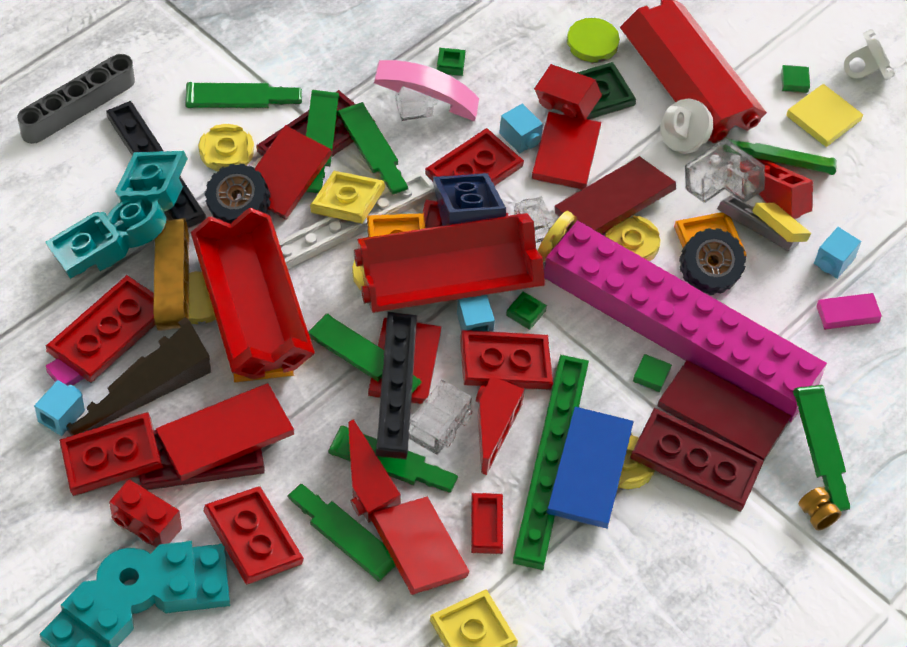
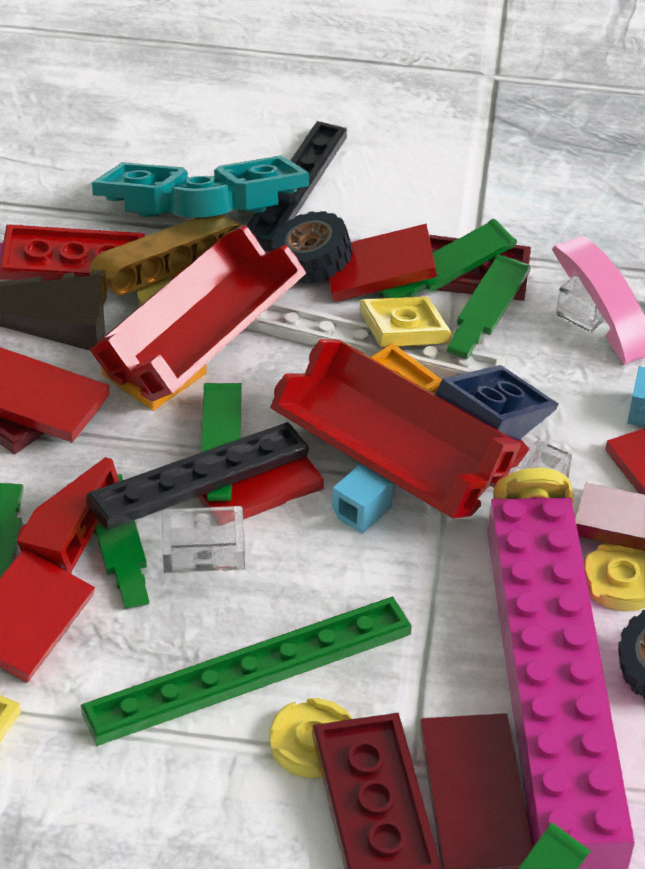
camera: 55 degrees right, 10 degrees down
(76, 98) = (307, 95): dark grey beam -> none
(225, 146) = (370, 214): light yellow tile -> none
(239, 95) = (440, 189): green piece -> none
(477, 156) = (584, 396): red tile -> none
(487, 523) = (110, 659): red tile -> none
(497, 411) = (246, 586): red slope -> none
(507, 356) = (336, 554): red tile -> none
(526, 310) = (424, 538): green tile -> none
(590, 467) = (261, 702): blue tile -> none
(652, 373) = (458, 693): green tile -> none

